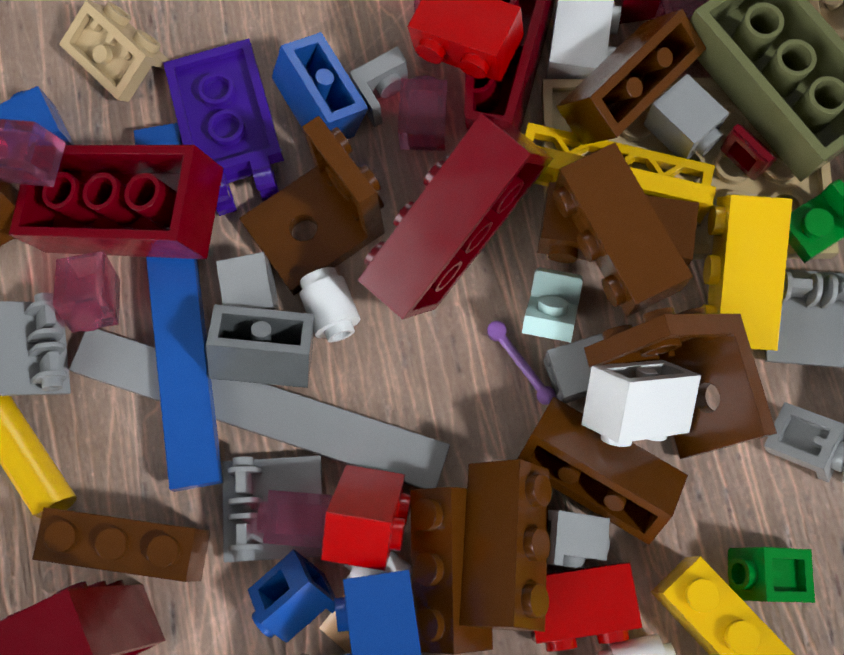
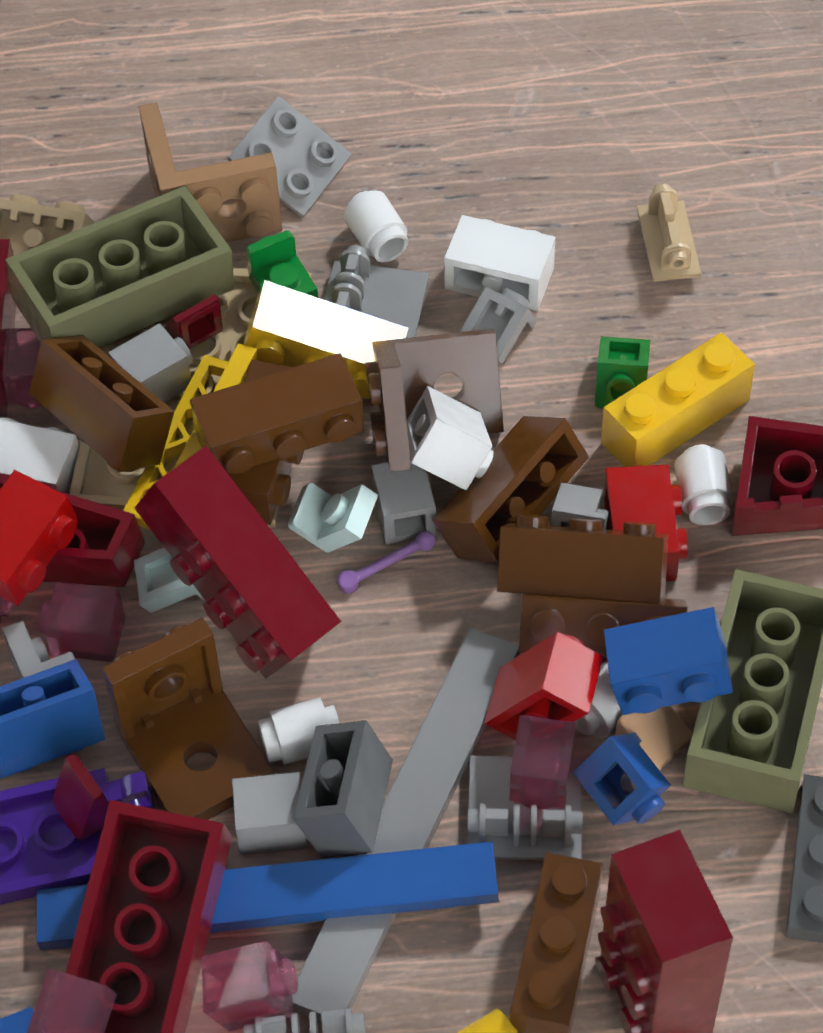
camera: 90 degrees left, 20 degrees down
(240, 138) = (79, 799): none -> dark red slope

